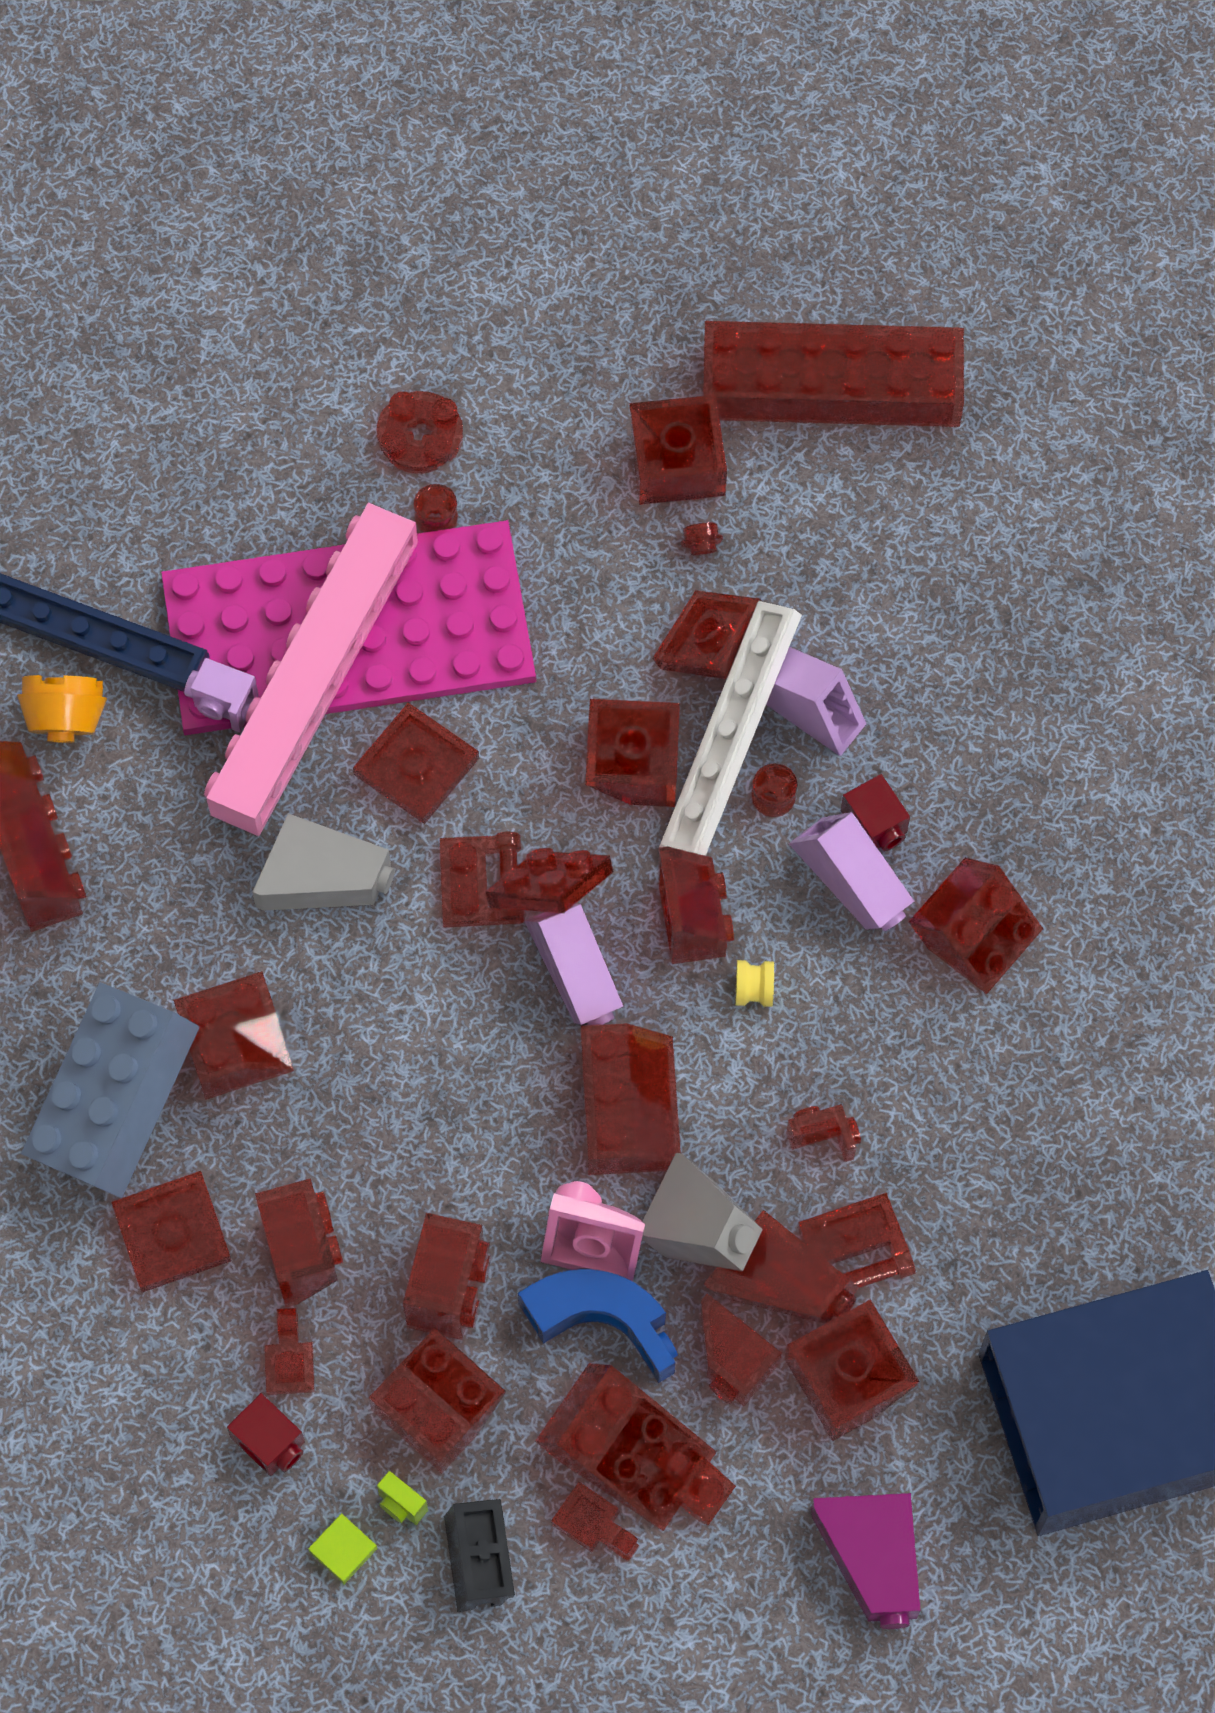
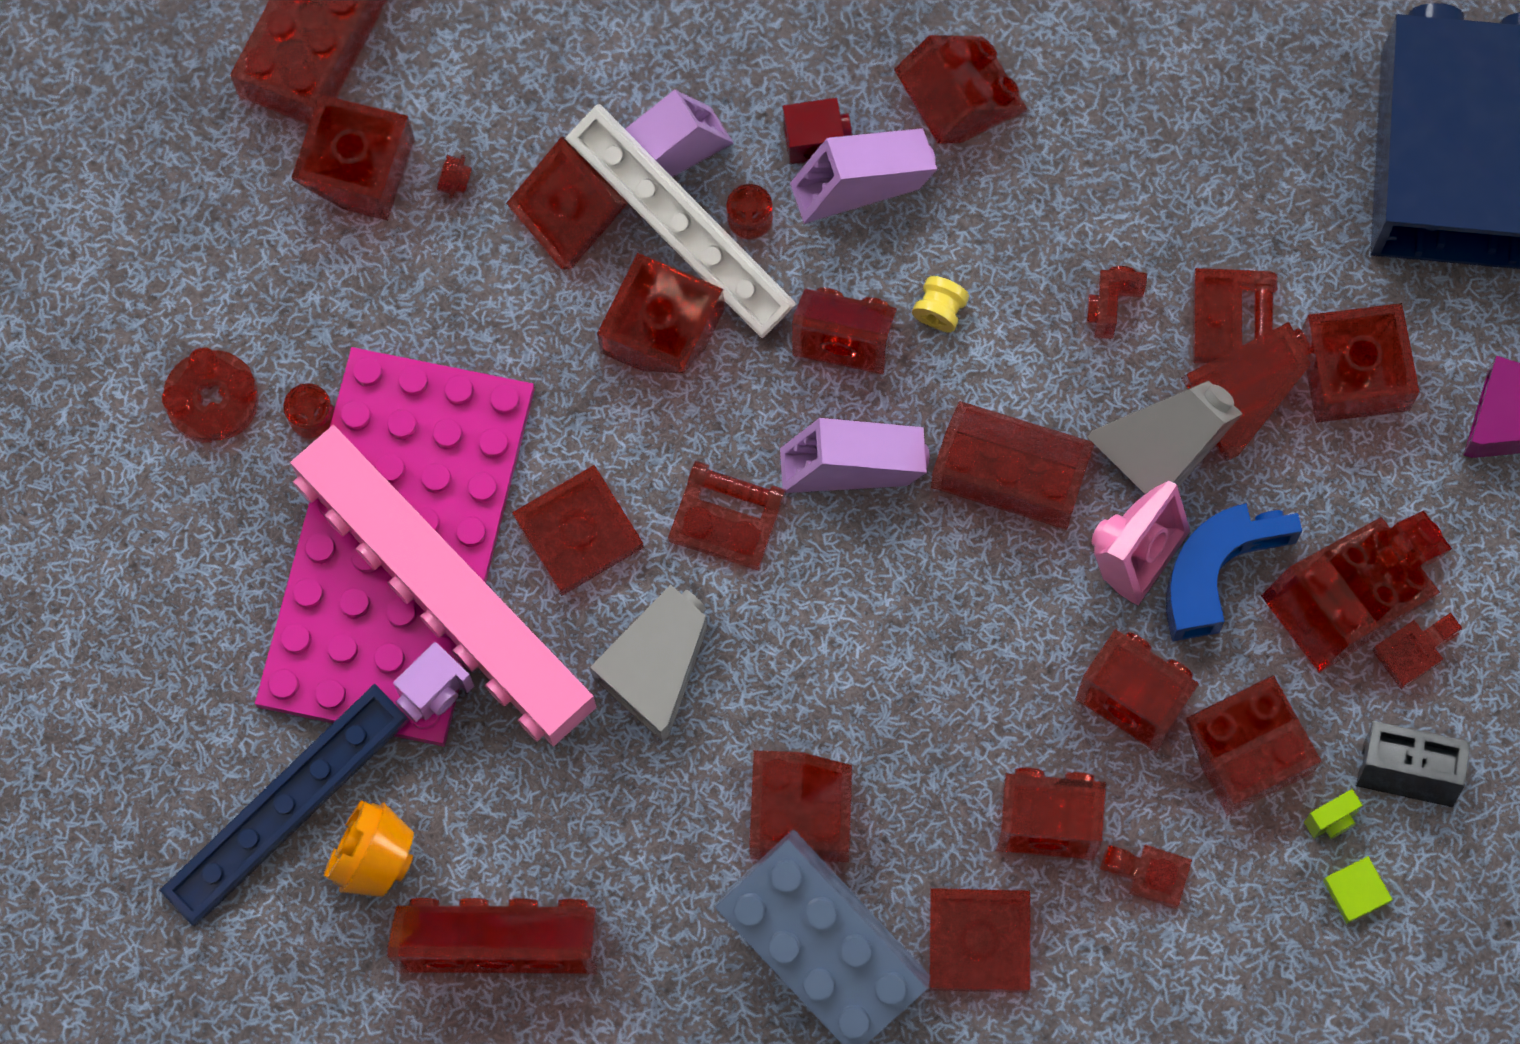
camera: 65 degrees left, 5 degrees up
(267, 1436) = (1226, 919): dark red brick -> none
(549, 881) = (770, 444): clear red plate -> none
(734, 1354) = (1300, 462): clear red slope -> none

